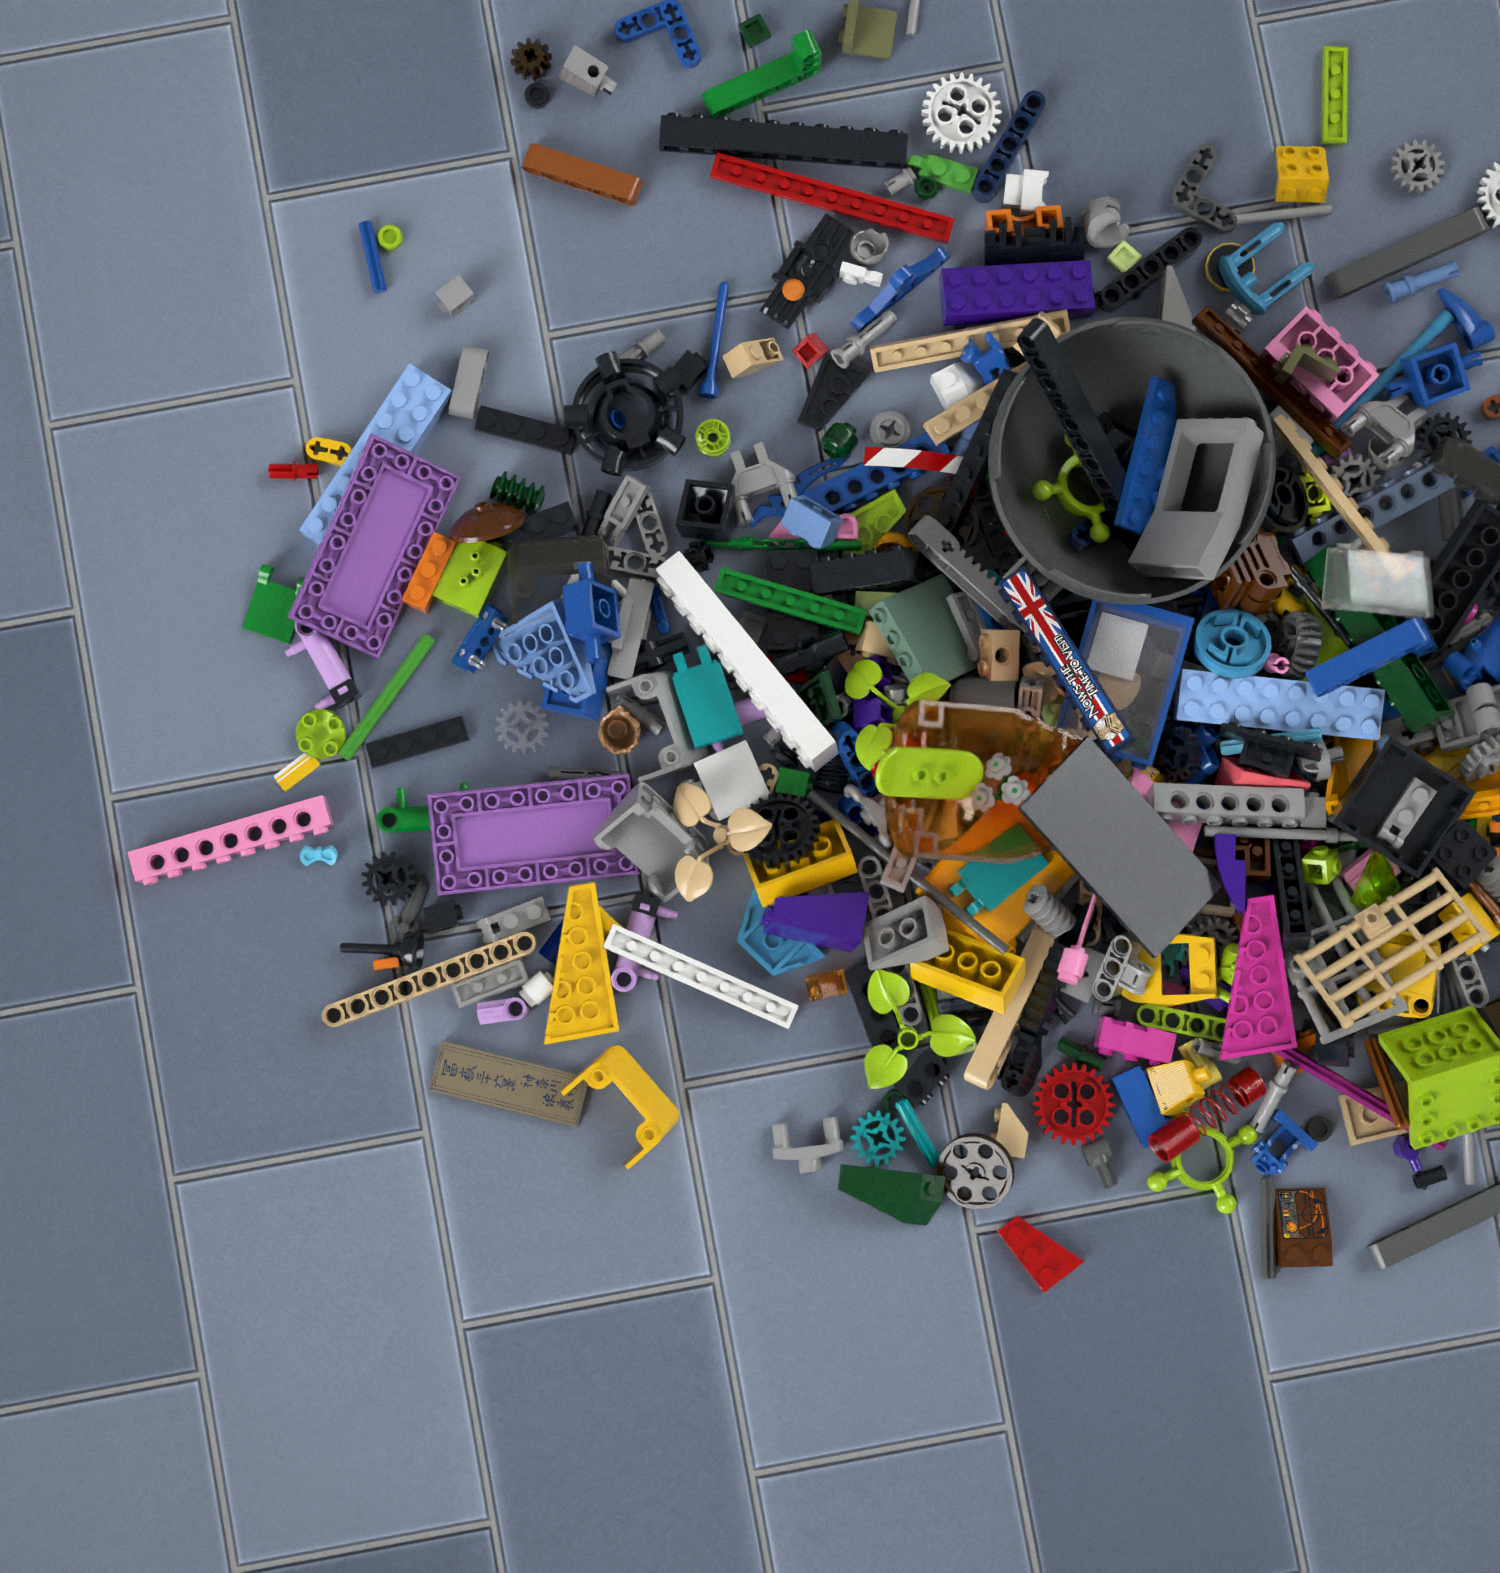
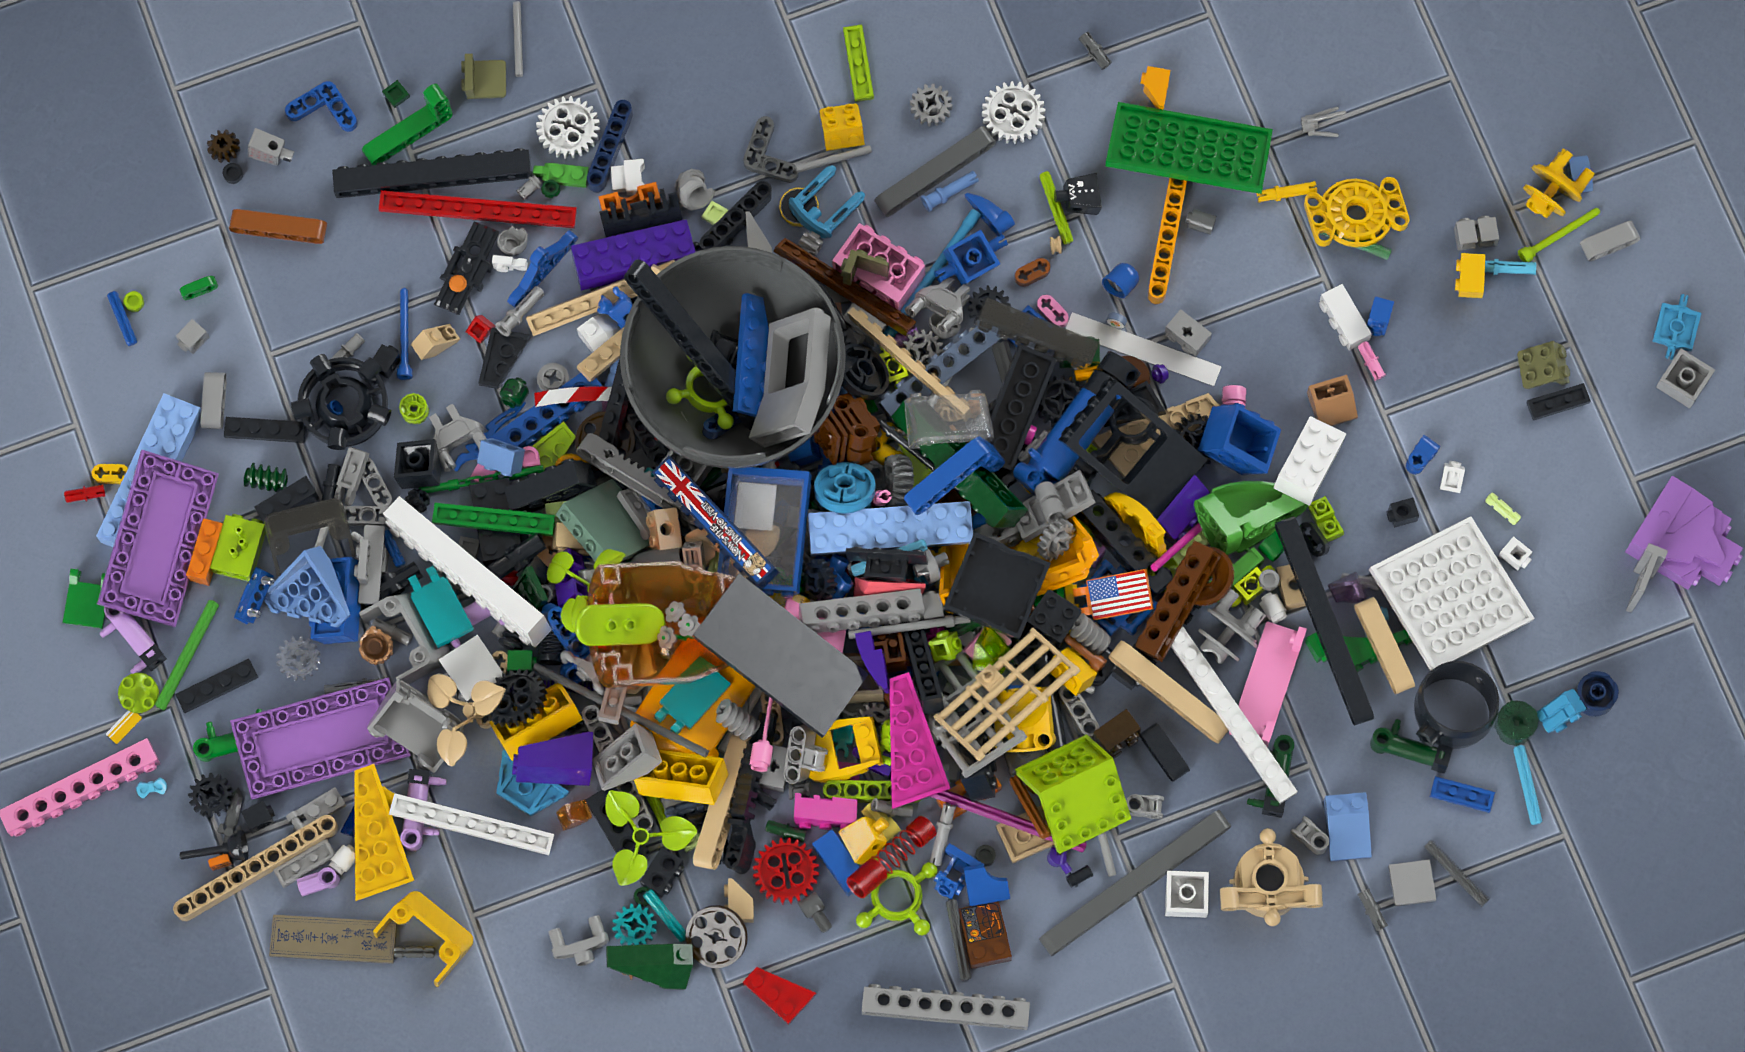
camera: 10 degrees left, 10 degrees down
(473, 235) = (198, 287): none -> green beam
(486, 522) = (243, 502): reddish brown dish -> none
(591, 612) = (336, 553): blue brick -> none
(605, 1118) = (414, 951): none -> dark grey axle
(1312, 1170) = (984, 887): none -> blue tile
(1326, 1341) = (955, 1015): none -> light grey brick
(1405, 813) = (1002, 590): light grey plate -> none

